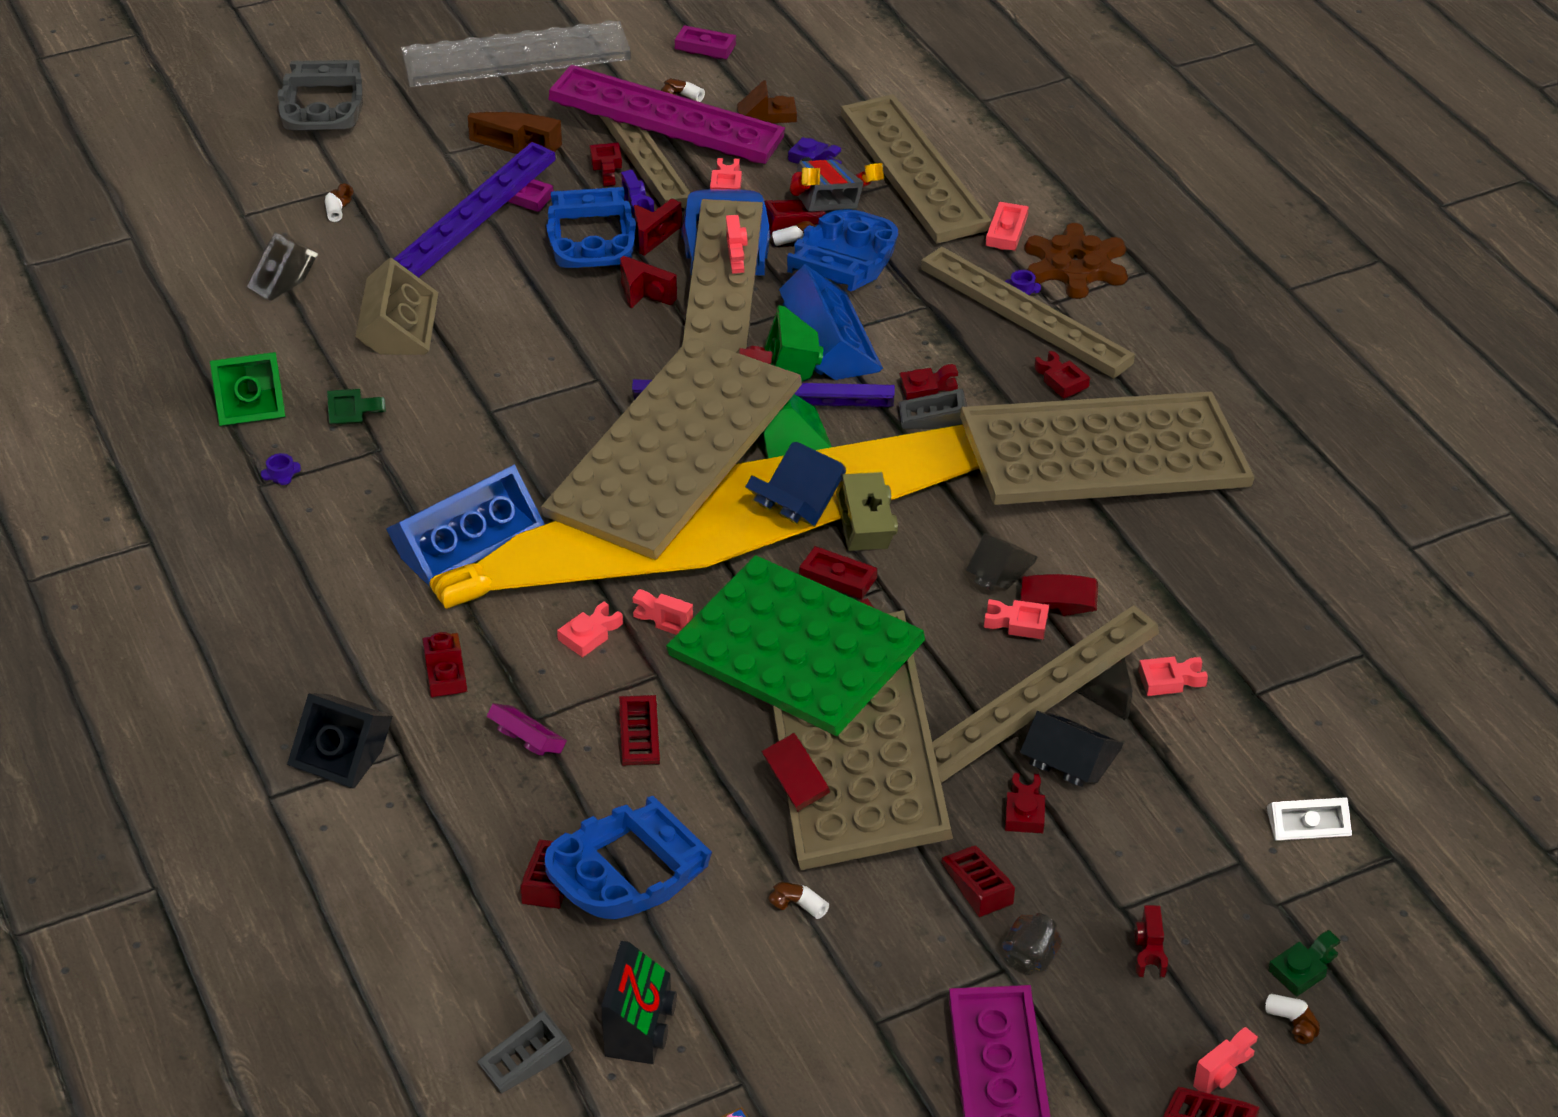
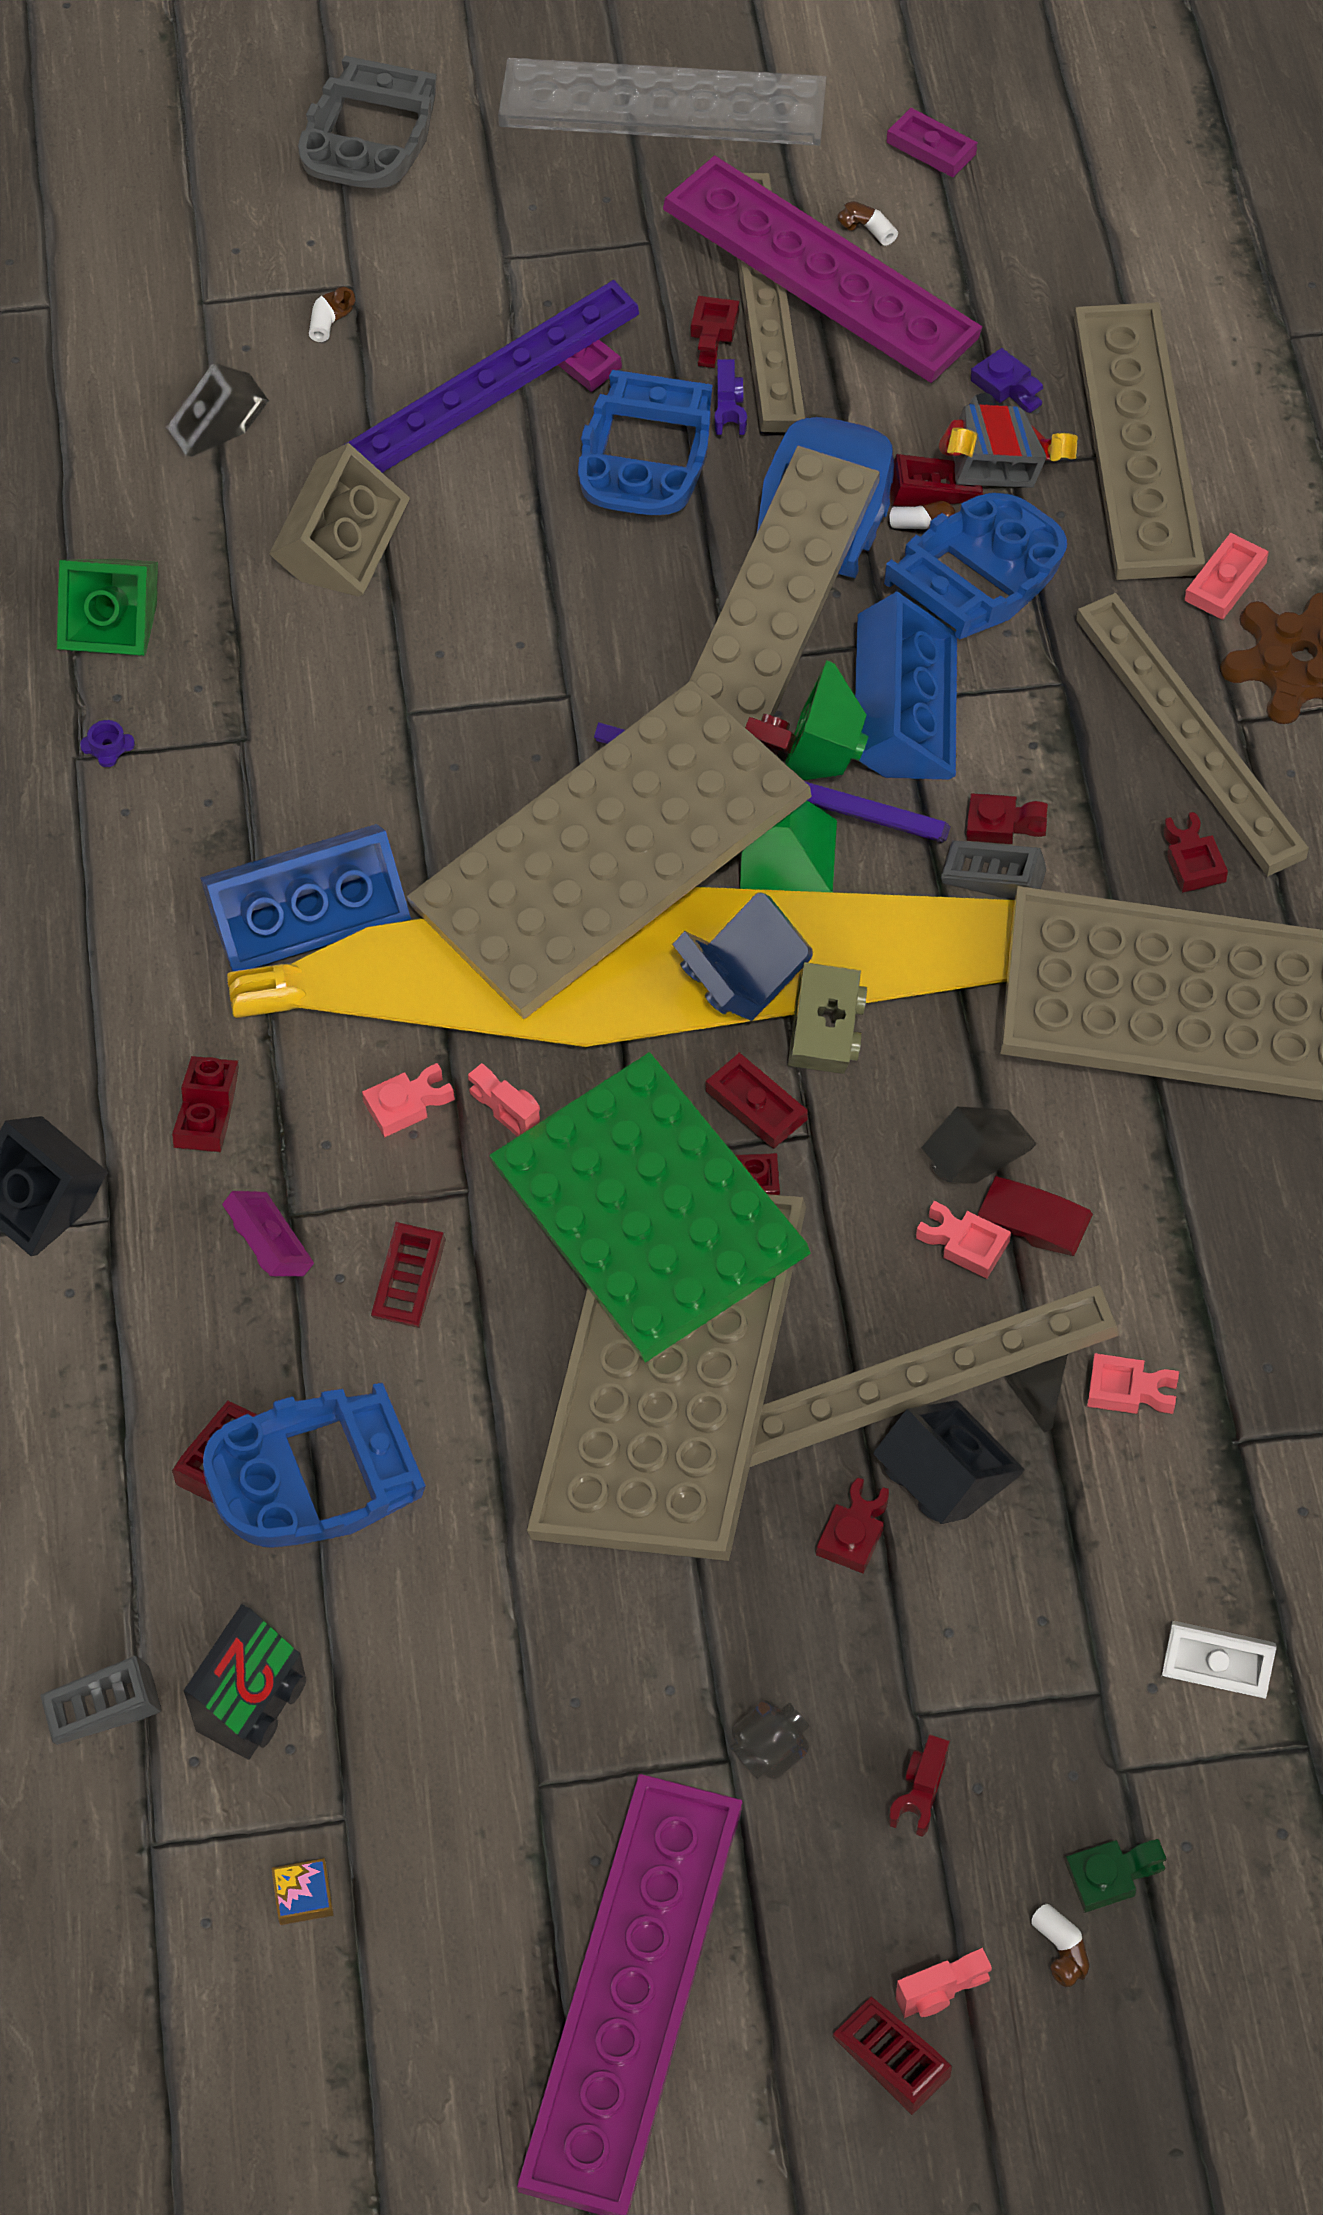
camera: 20 degrees right, 15 degrees up
(348, 406) = (223, 665): dark green plate -> none
(514, 130) = (608, 248): reddish brown slope -> none
(647, 280) = (685, 550): dark red slope -> none
(656, 226) = (735, 461): dark red slope -> none
(726, 175) = (865, 401): coral plate -> none
(736, 238) = (812, 532): coral plate -> none
(771, 110) = (967, 284): reddish brown slope -> none
(796, 771) = (567, 1404): dark red slope -> none
(800, 894) = (513, 1576): arm -> none
(981, 900) = (751, 1656): dark red slope -> none
(1024, 281) = (1207, 674): dark purple plate -> none

